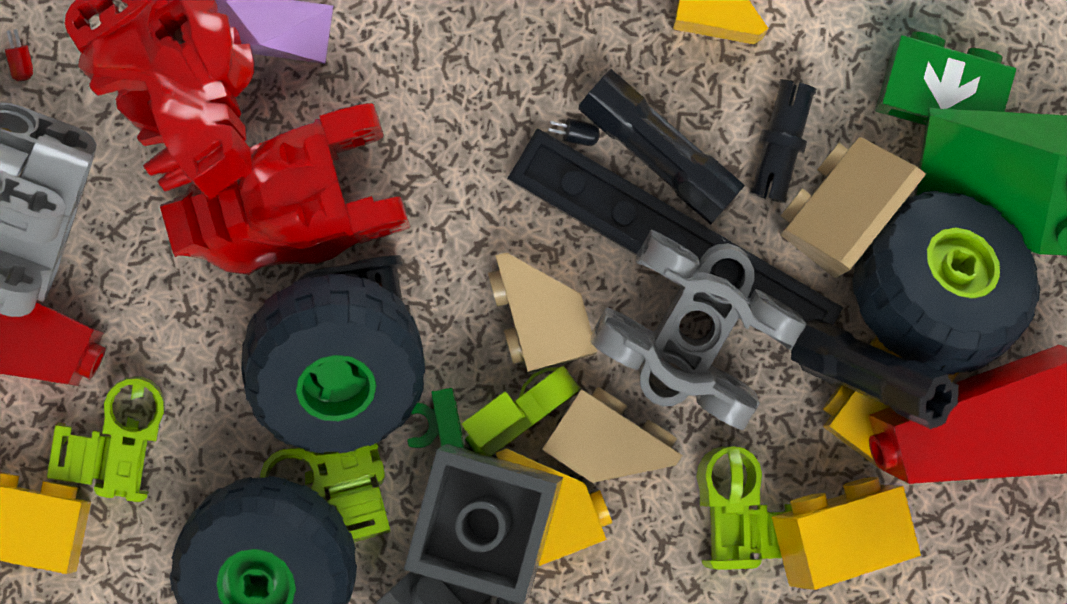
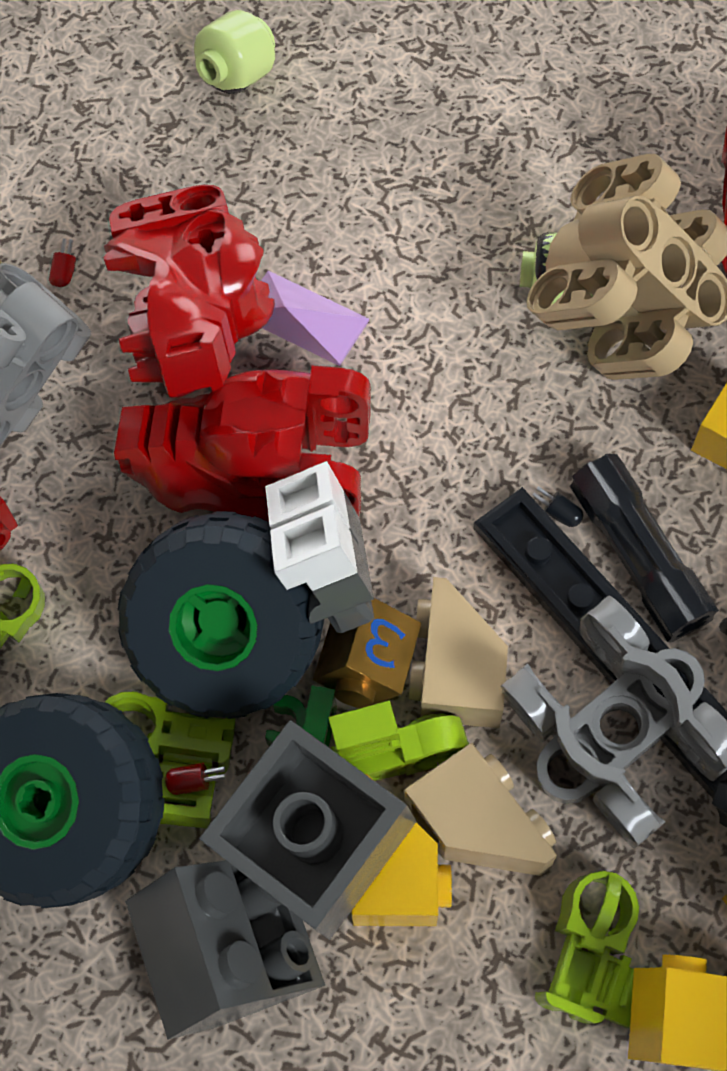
camera: 25 degrees right, 20 degrees down
(361, 503) = (191, 778): none -> red piece
(396, 284) = (321, 544): none -> white hips
(463, 341) = (370, 660): none -> pearl gold brick

